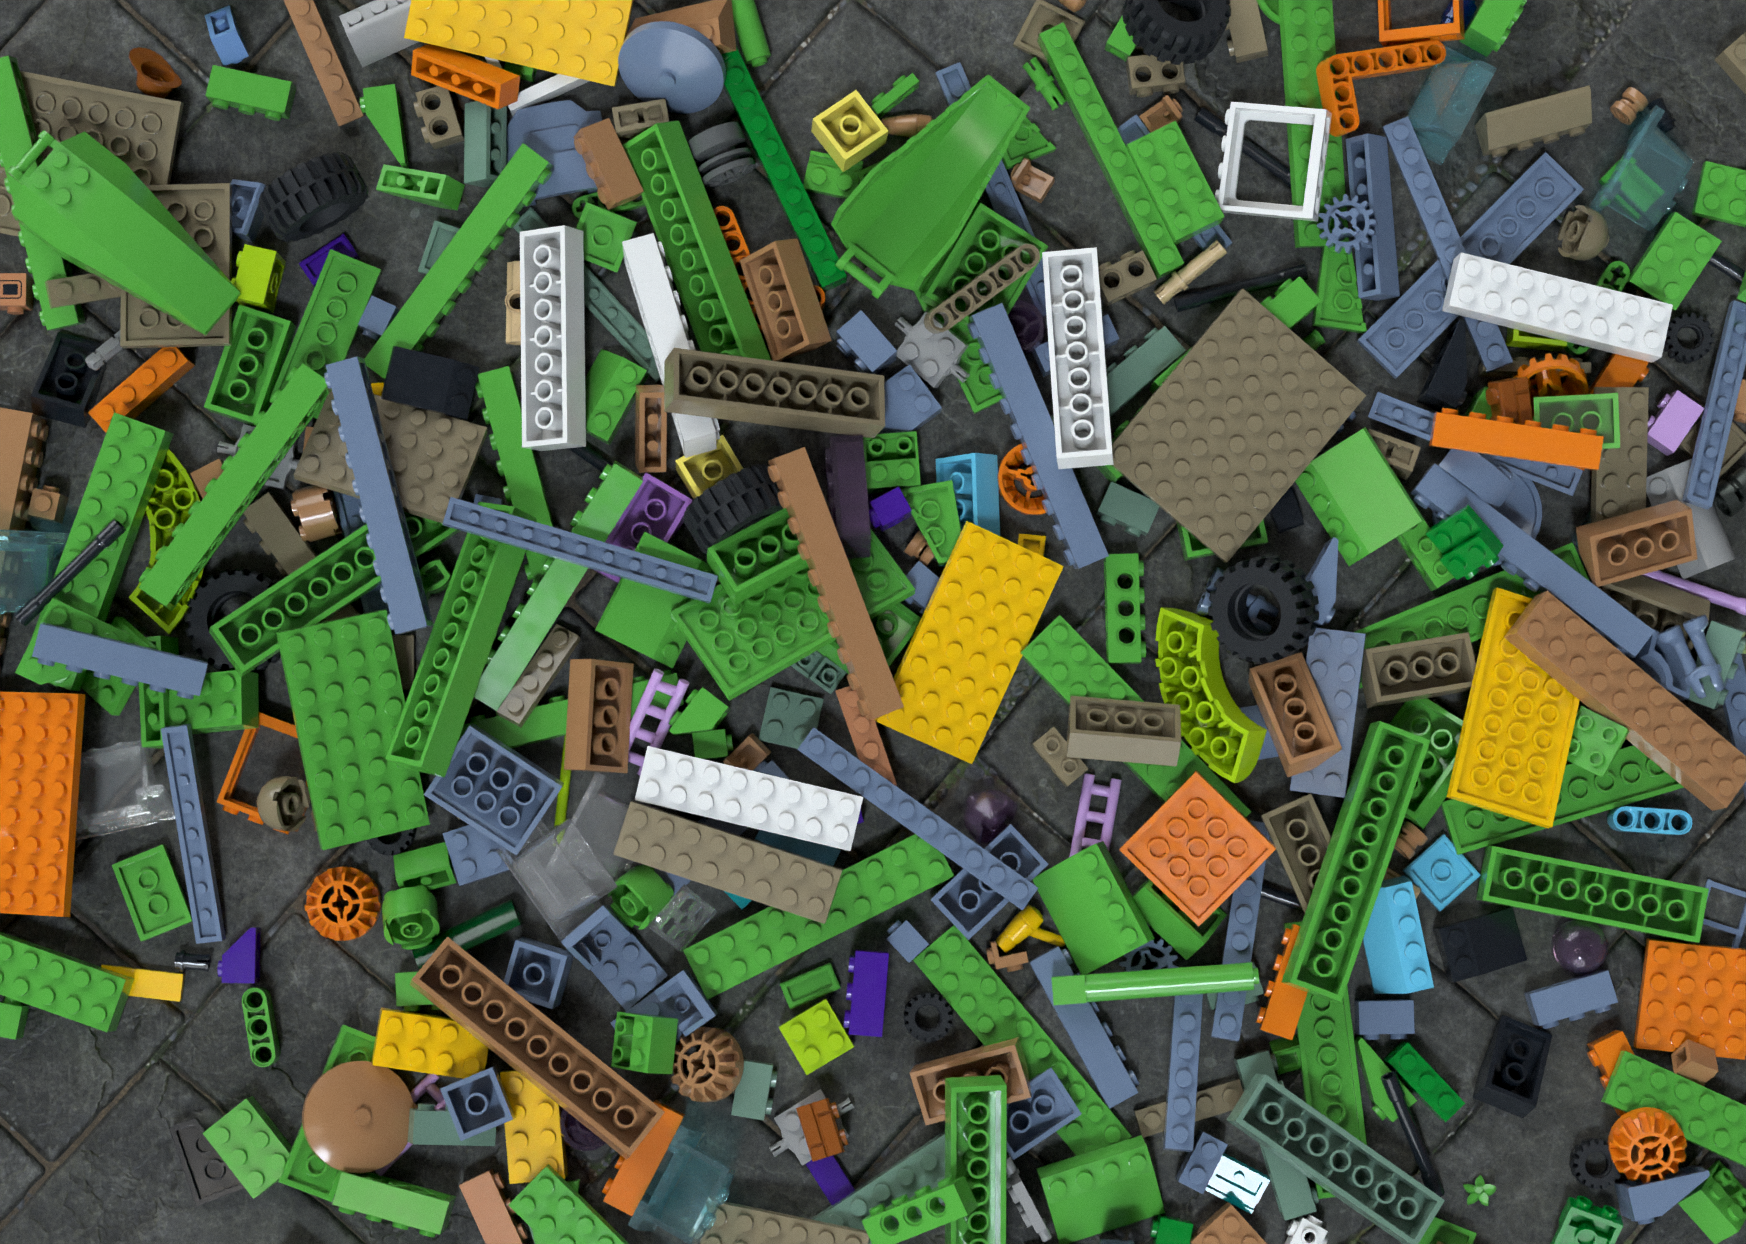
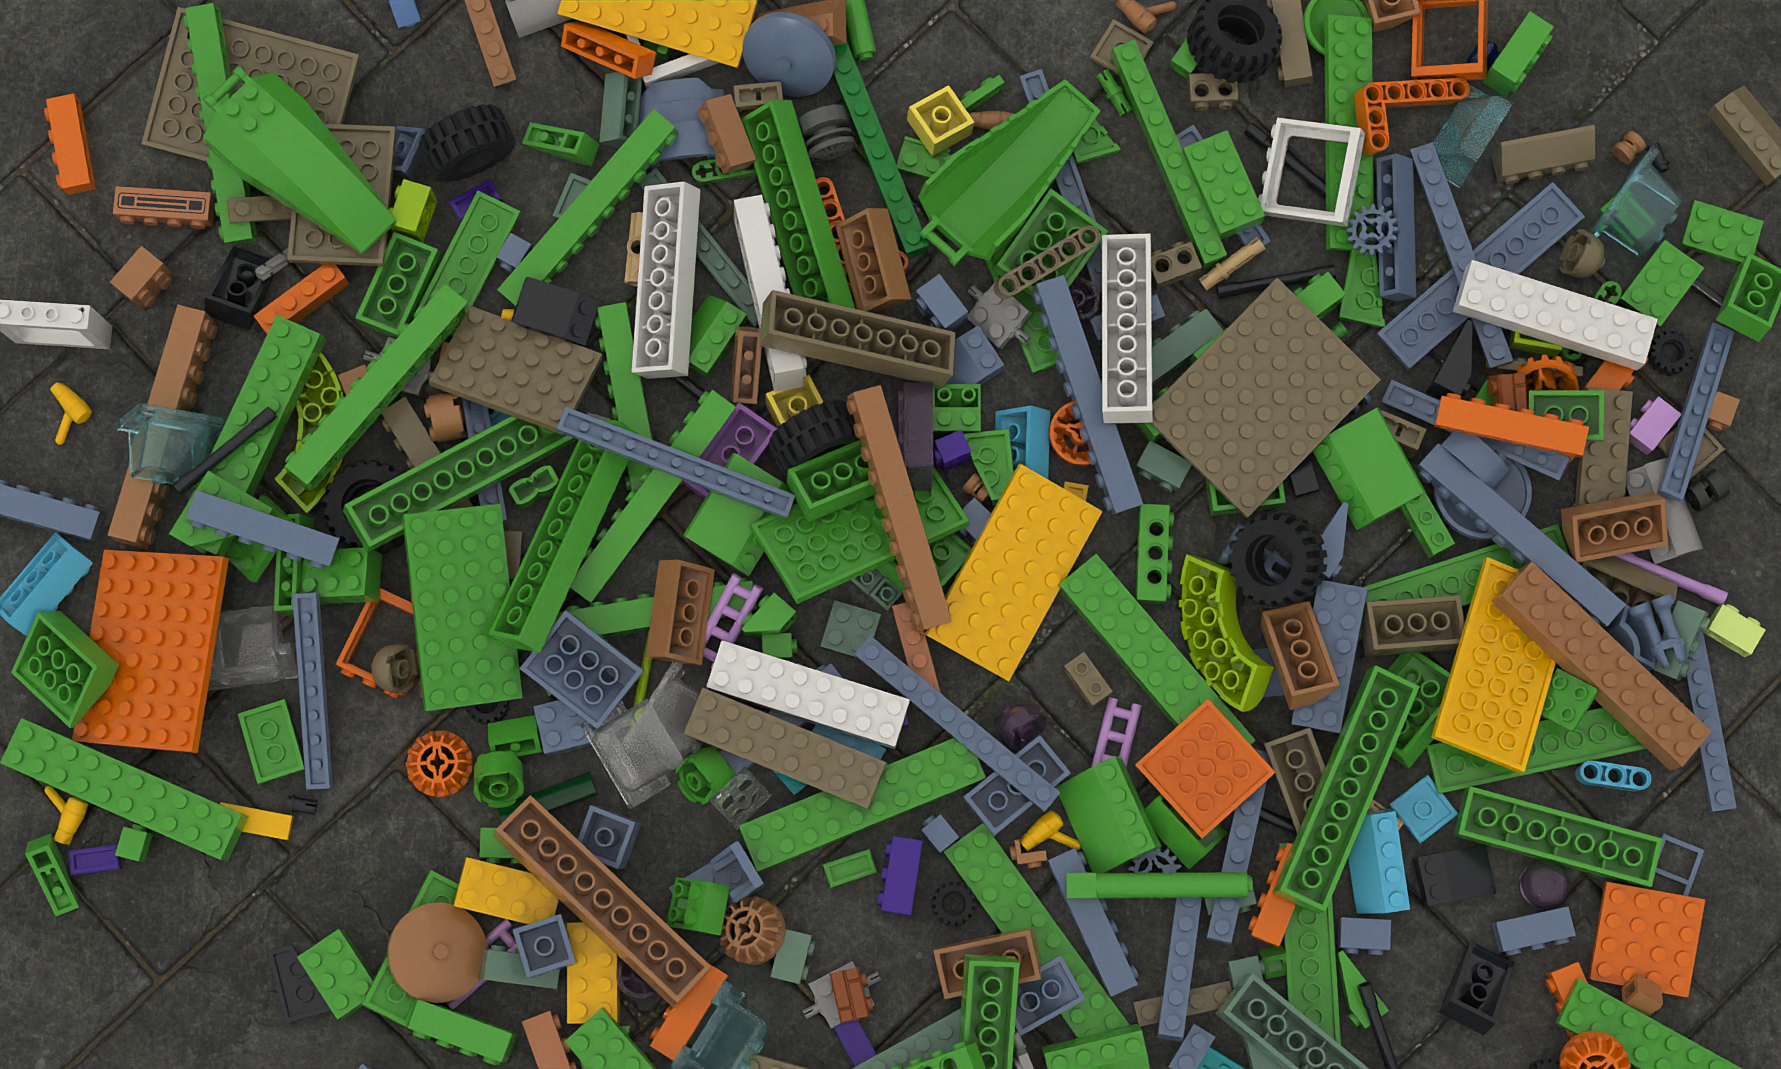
camera: 10 degrees right, 5 degrees down
(48, 504) = (210, 394): medium nougat brick -> none
(153, 73) = (336, 30): dark orange piece -> none
(242, 959) = (346, 806): dark purple slope -> none
(250, 93) = (419, 52): bright green brick -> none
(251, 1016) = (350, 857): bright green beam -> none
(378, 495) = (502, 403): sand blue brick -> none
(384, 112) = (535, 79): bright green slope -> none
(443, 115) = (585, 83): dark tan brick -> none
(538, 675) = (629, 574): dark tan plate -> none
(604, 236) = (718, 196): bright green plate -> none
(615, 957) = (677, 828): sand blue bracket -> none
(748, 754) = (811, 656): medium nougat bracket -> none
(816, 1036) = (852, 912): lime brick -> none
(1031, 181) = (1096, 175): medium nougat bracket -> none
(1124, 731) = (1146, 659): dark tan slope -> none
(1162, 114) = (1216, 125): medium nougat bracket -> none
(1409, 840) = (1395, 777): medium nougat wheel -> none
(1424, 1081) = (1396, 994): green brick -> none
(1465, 543) = (1461, 515): green plate -> none

